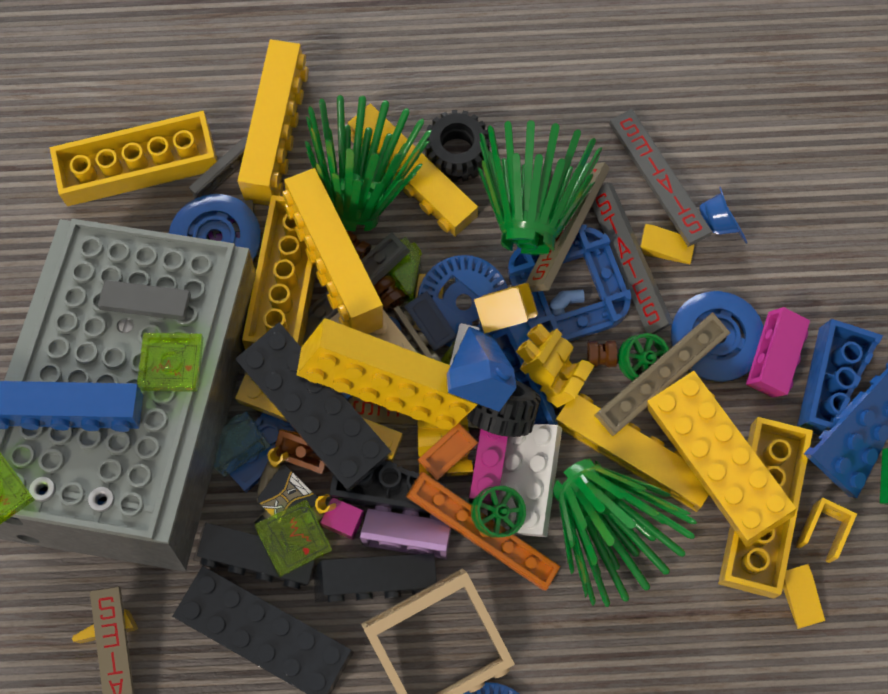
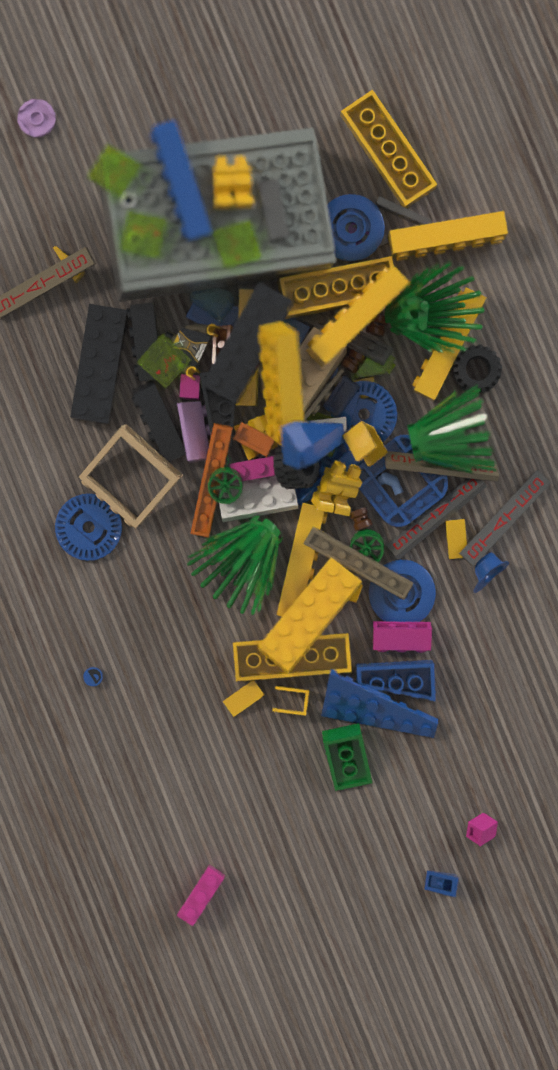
camera: 70 degrees right, 15 degrees up
(79, 333) = (232, 177): none -> yellow hips
(99, 483) = (143, 234): none -> clear neon green tile

